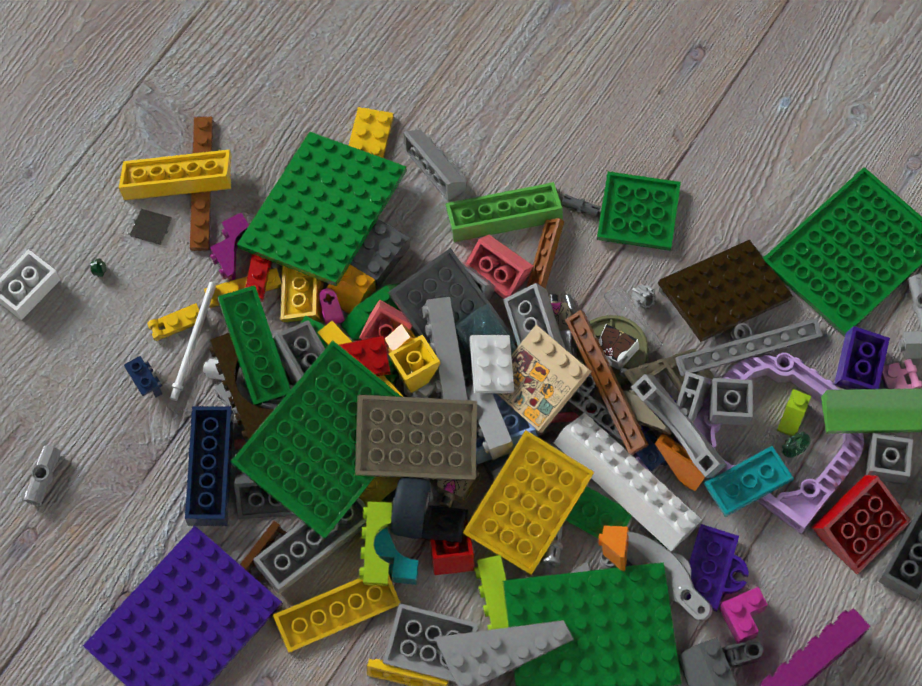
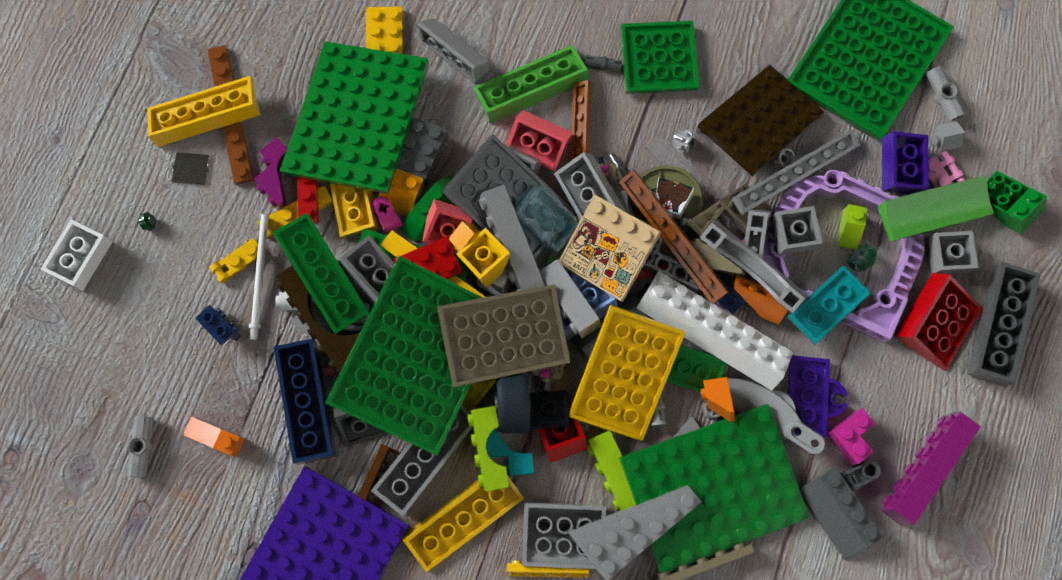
camera: 15 degrees left, 10 degrees up
(115, 482) = (214, 437): none -> slope
(491, 364) = (560, 243): white plate -> none

